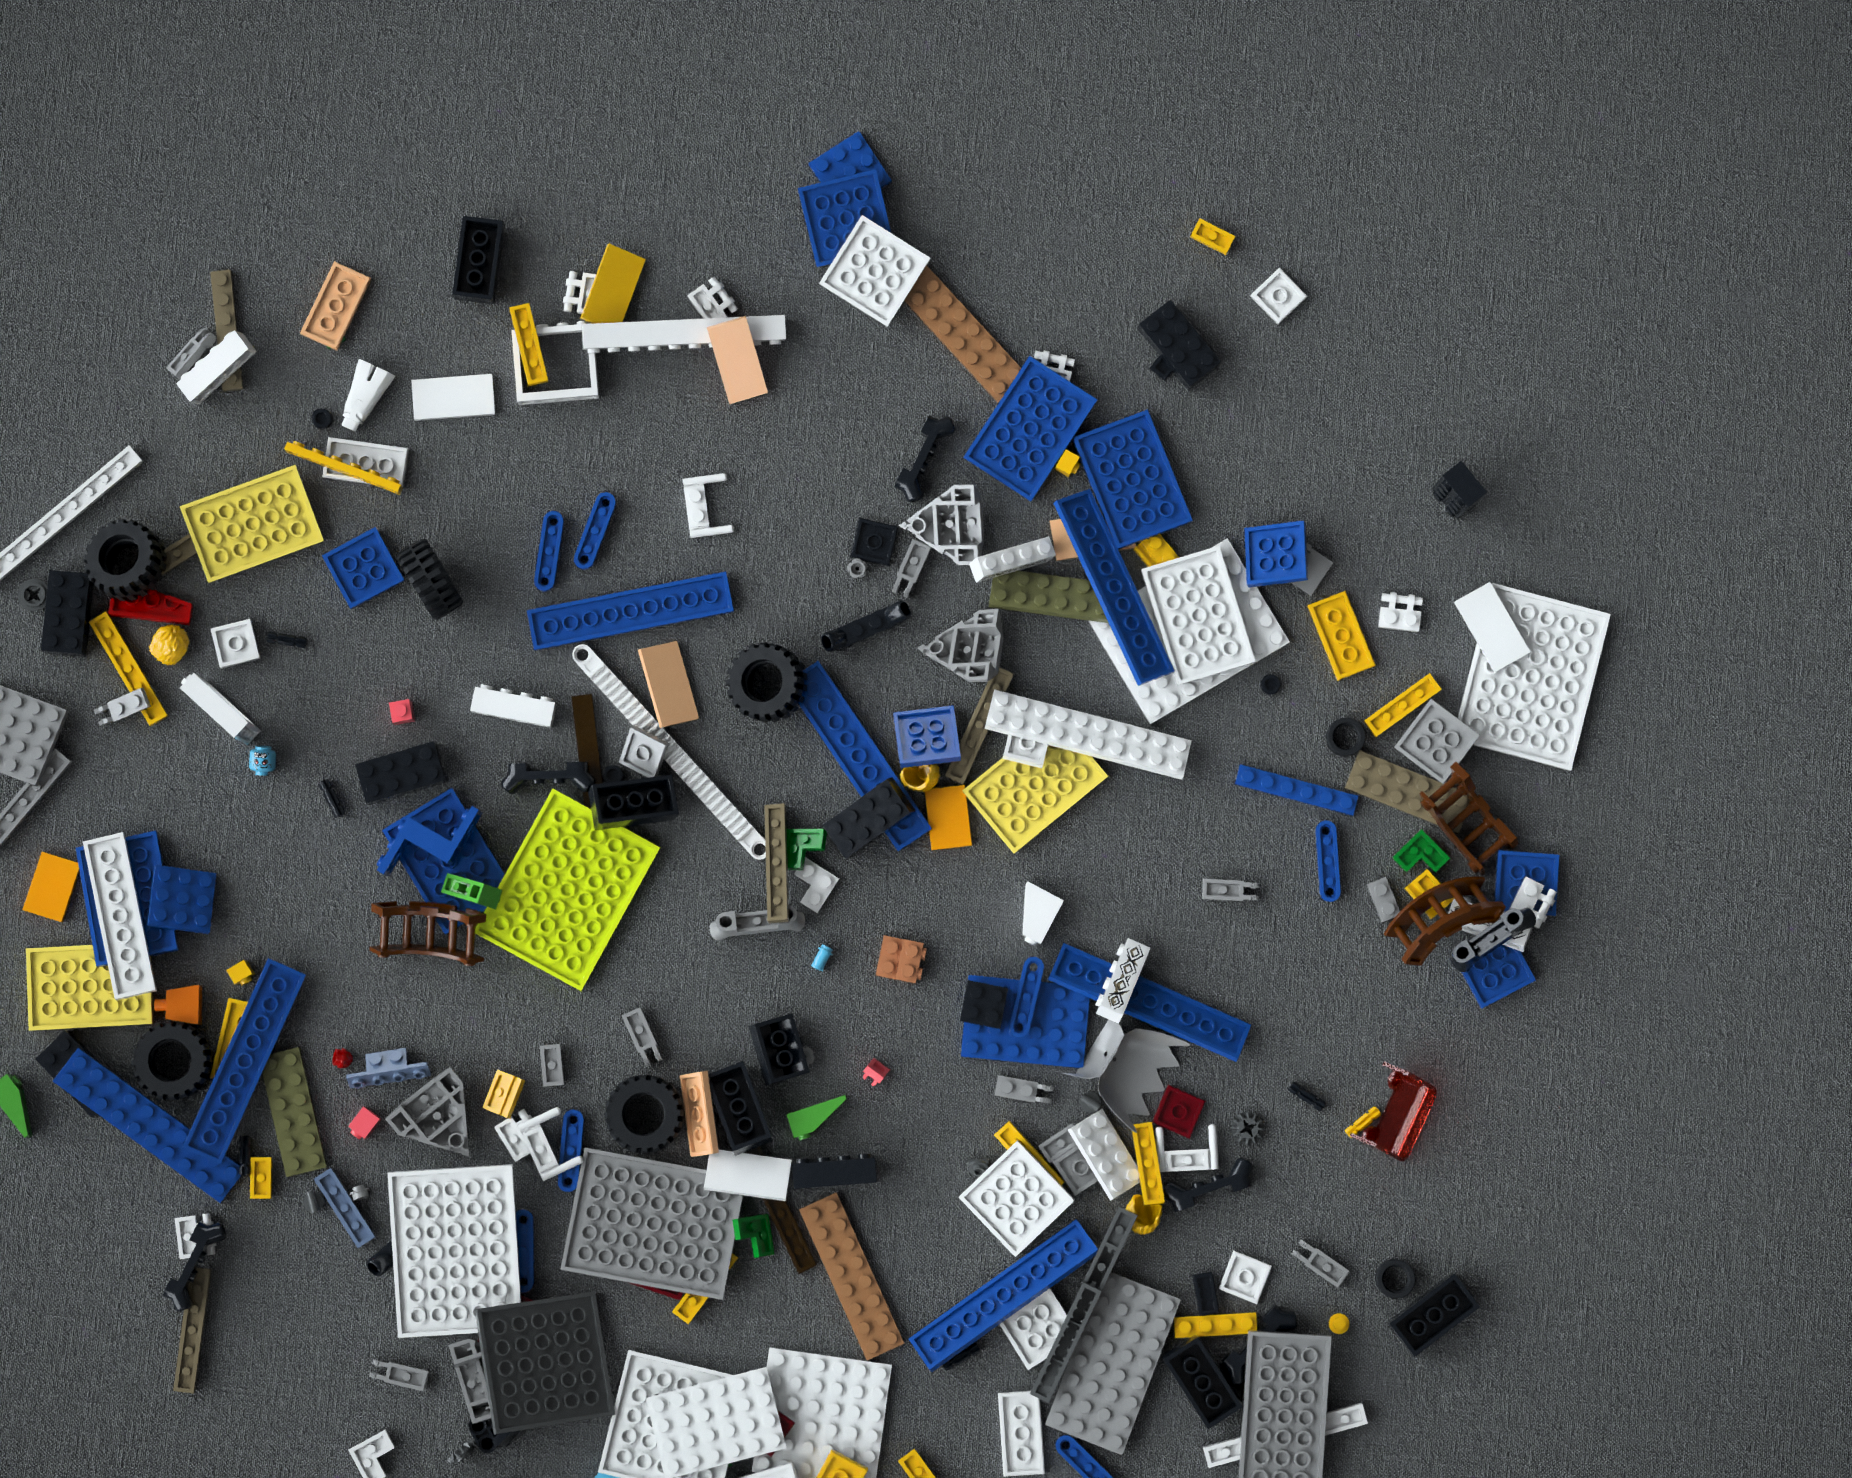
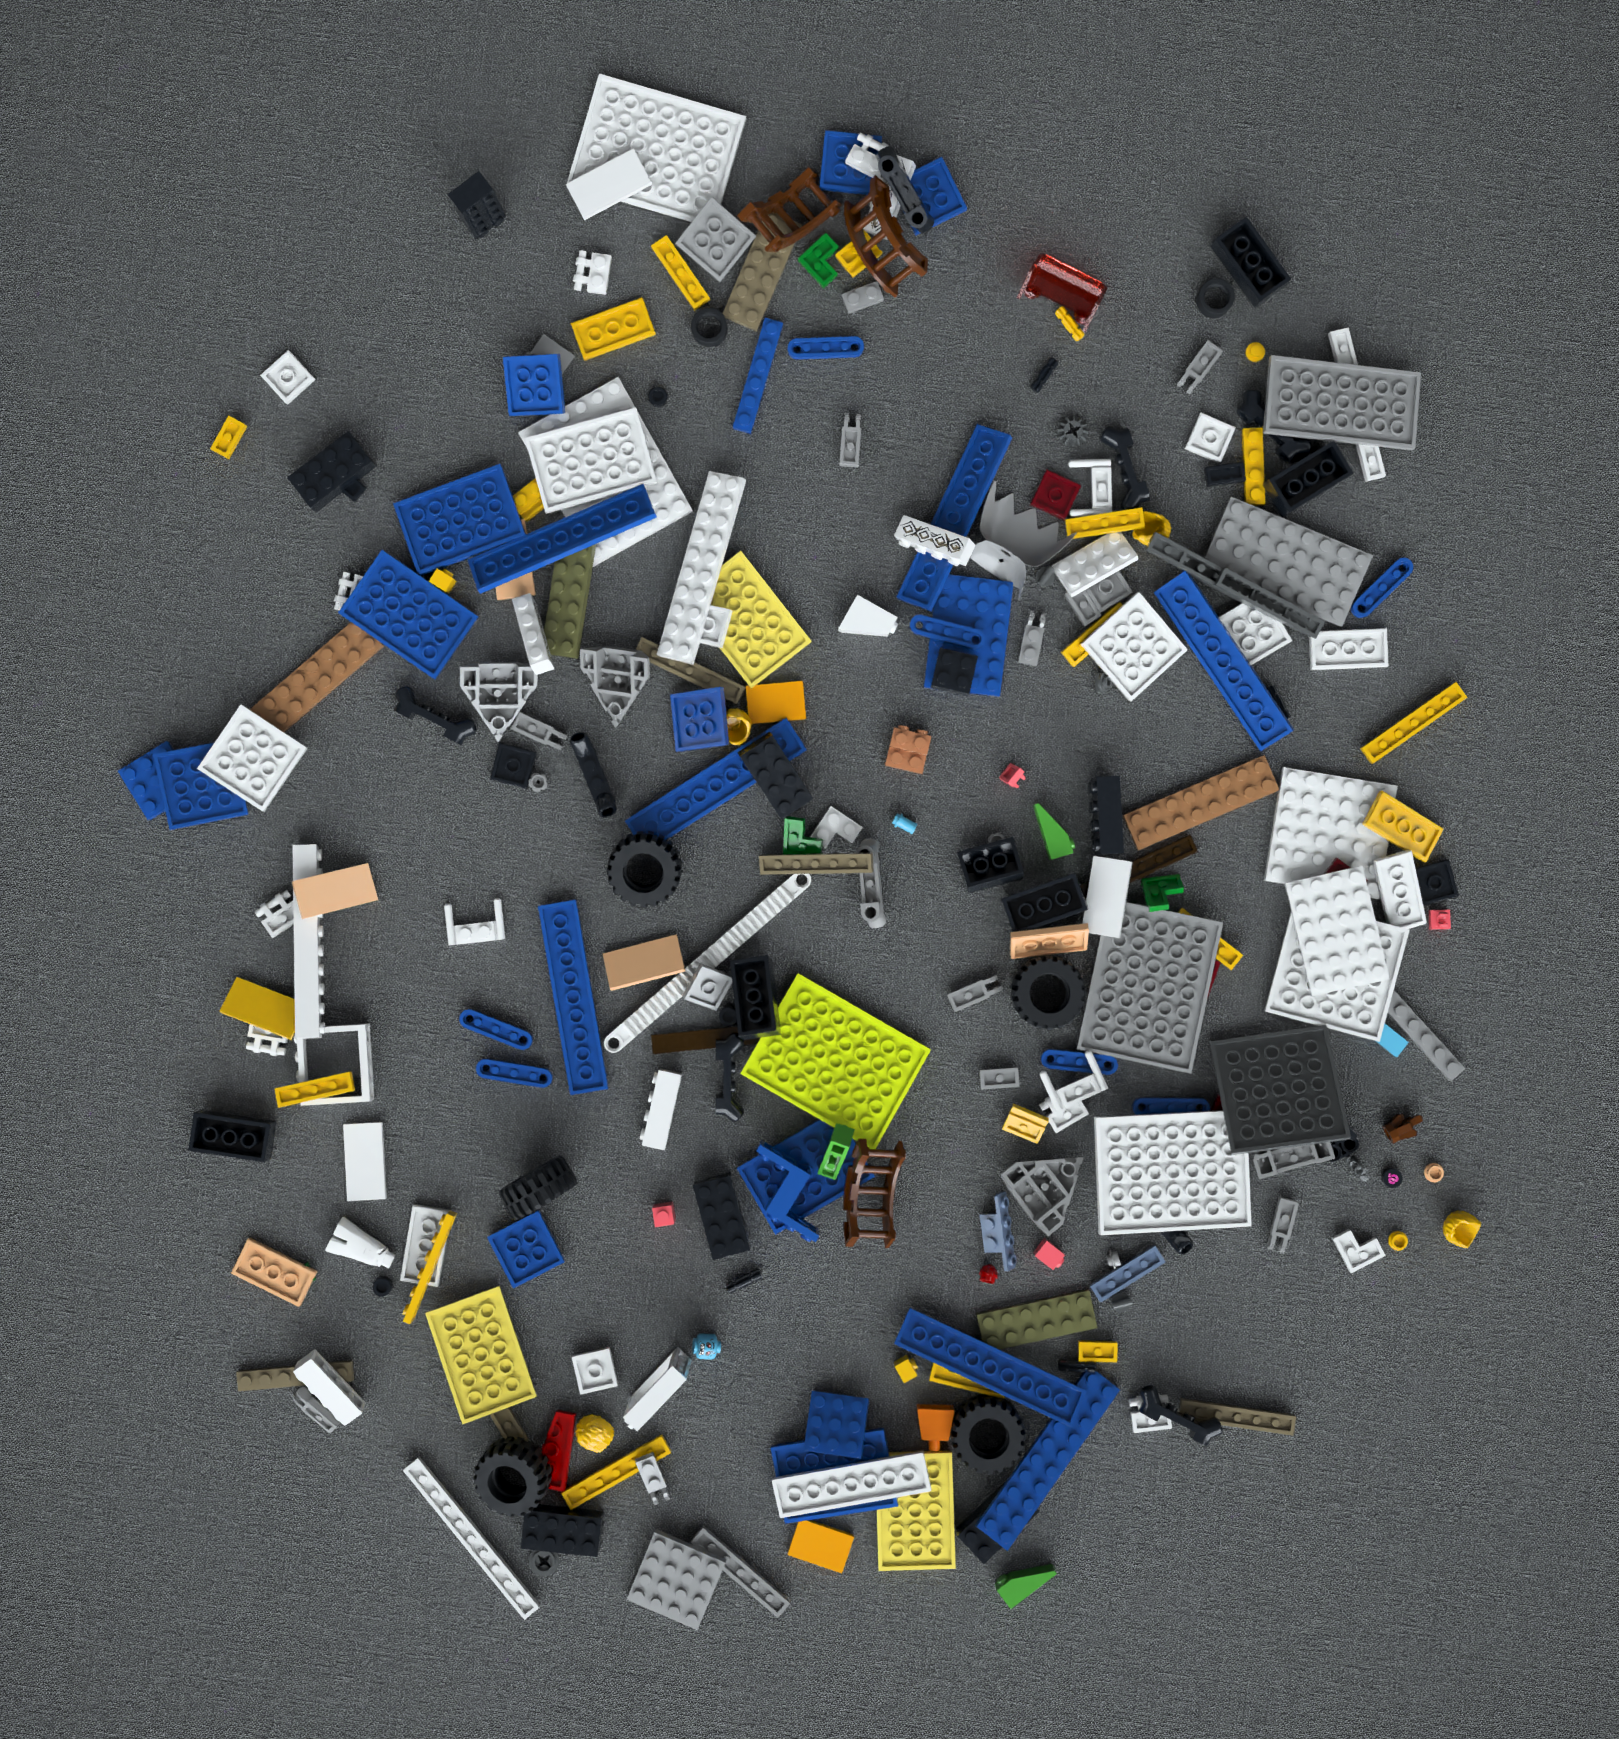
camera: 85 degrees left, 5 degrees up
(286, 639) = (592, 1322): black axle -> none

